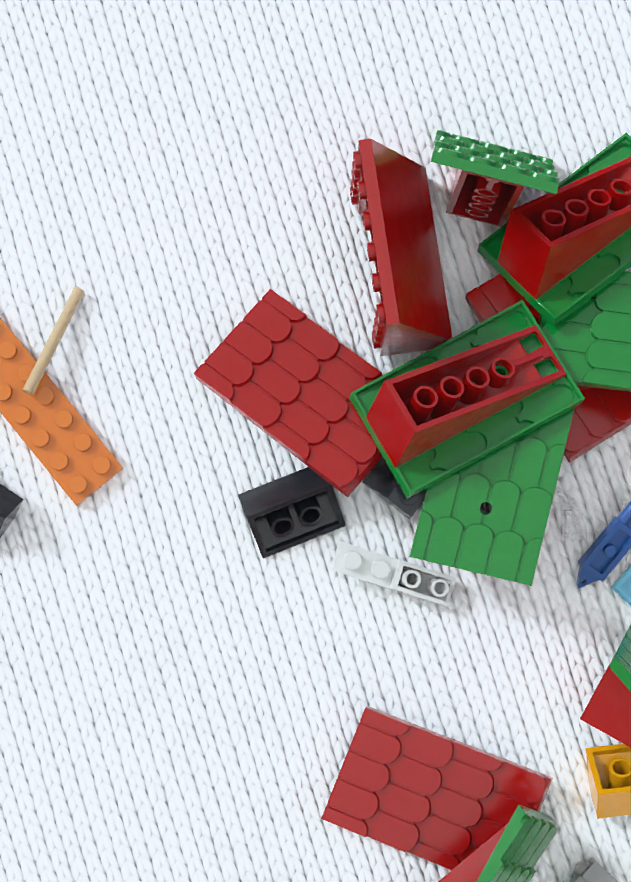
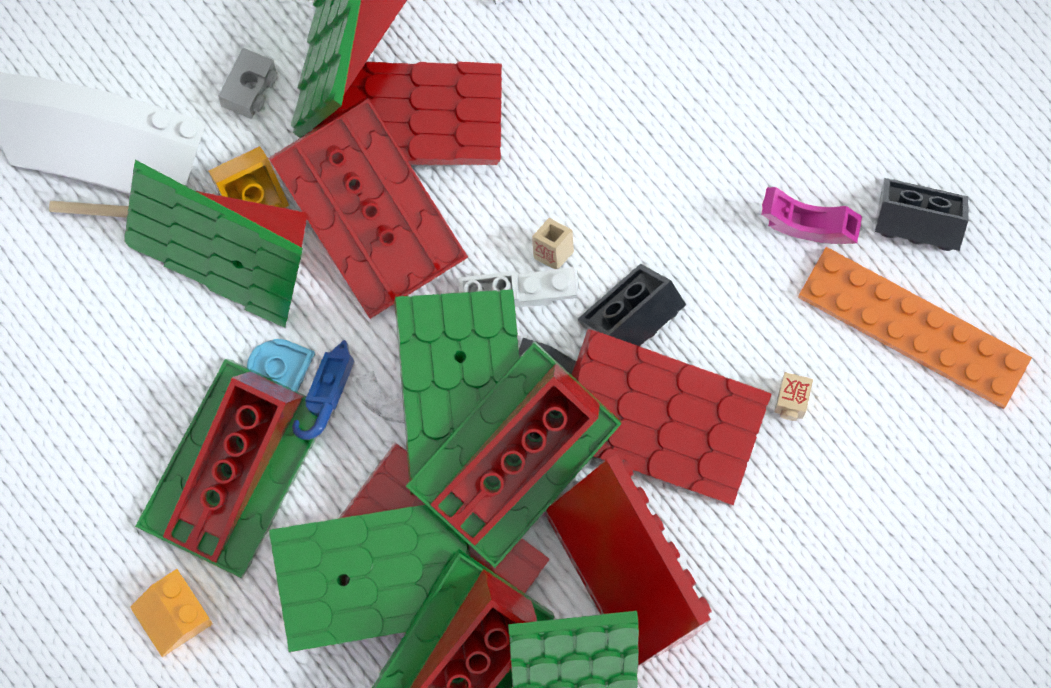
camera: 165 degrees right, 10 degrees down
(53, 341) = (910, 381): tan bar -> none
(80, 534) = (808, 221): none -> dark pink arch
(171, 367) = (793, 396): none -> tan brick
(344, 604) = (553, 244): none -> tan brick
(513, 710) = (382, 228): none -> red piece

